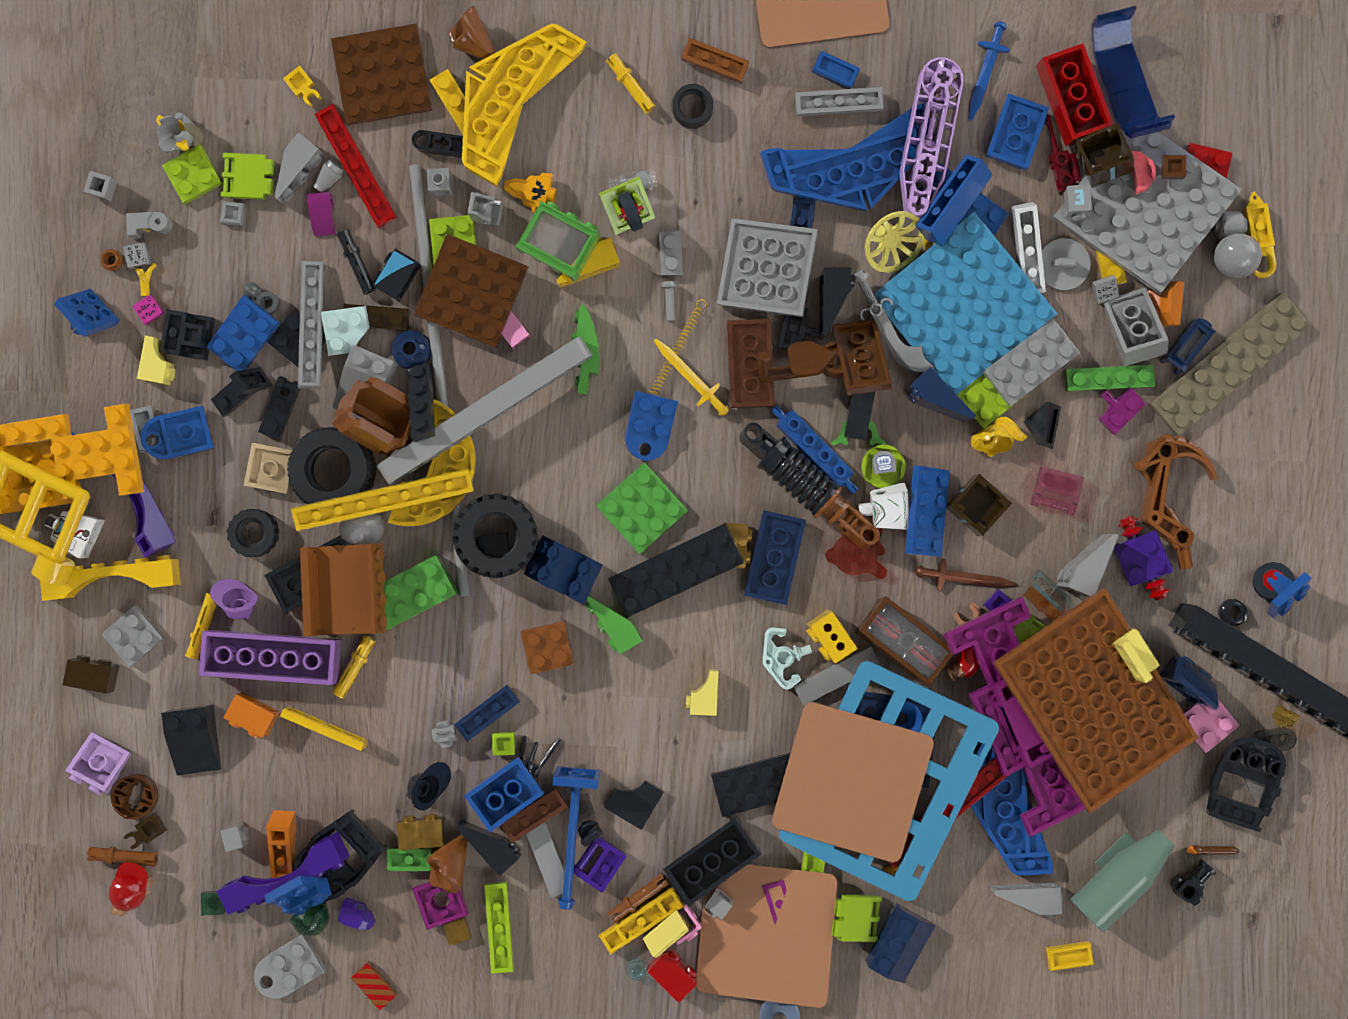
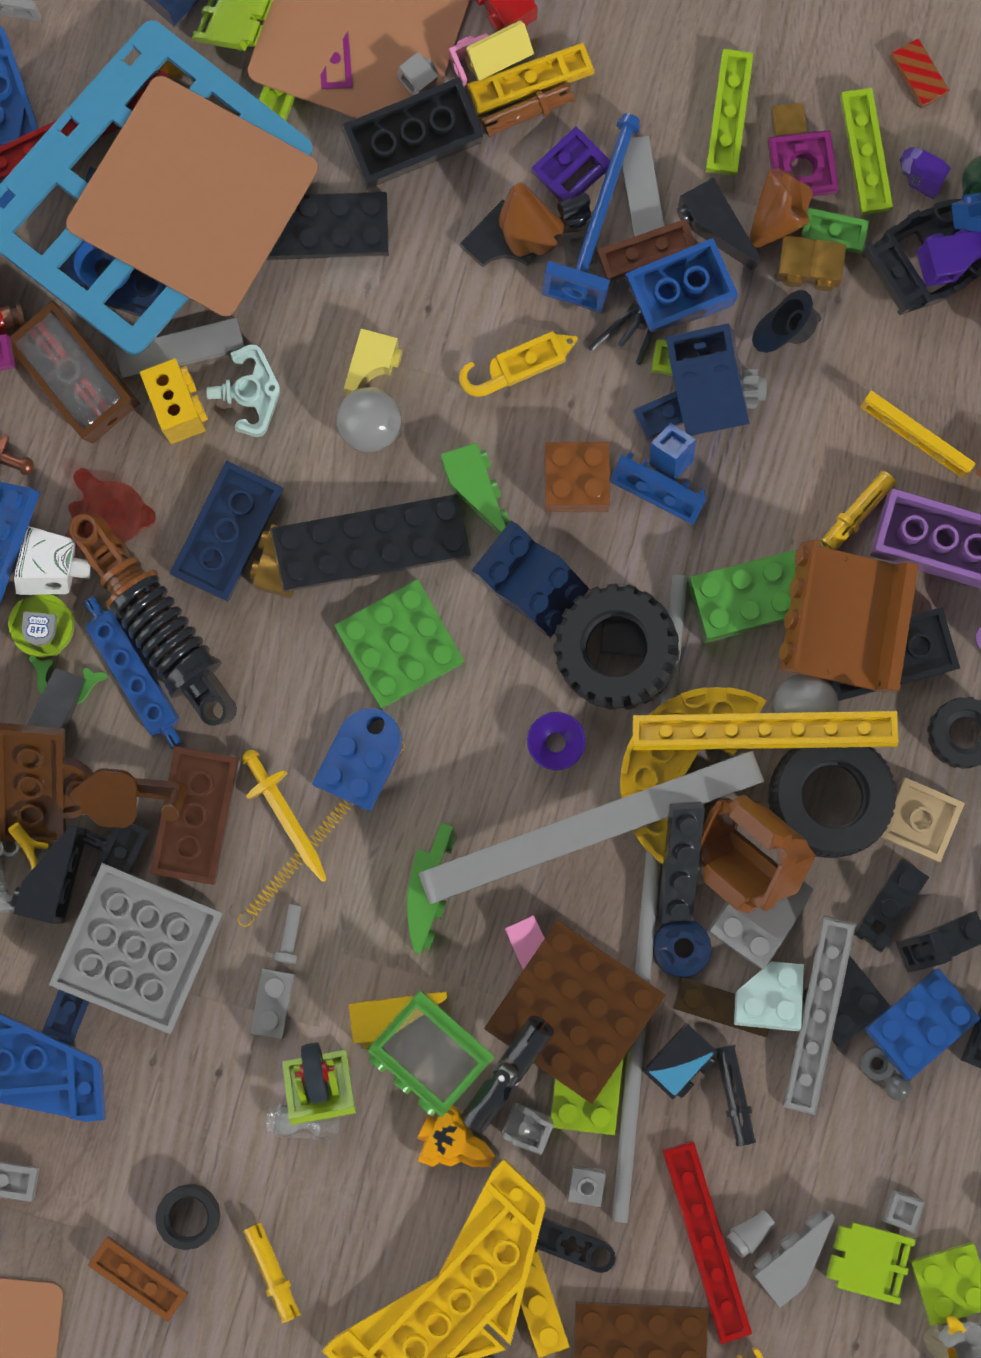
camera: 165 degrees left, 5 degrees down
(320, 211) = (771, 1180): magenta panel -> none
(399, 920) = (866, 151): none -> lime plate
(471, 731) = (708, 379): none -> dark blue slope
(487, 679) = (672, 451): none -> blue panel
(491, 651) = (658, 489): none -> blue plate
(511, 229) = (496, 1090): none -> black piece
(512, 459) = (567, 727): none -> dark purple piece
(604, 717) = (520, 363): none -> yellow plate
(618, 815) = (528, 222): none -> dark orange hat
(631, 974) = (552, 25): clear light blue axle -> none
(696, 653) = (369, 419): none -> light grey piece
(855, 319) = (27, 843): none -> yellow bar

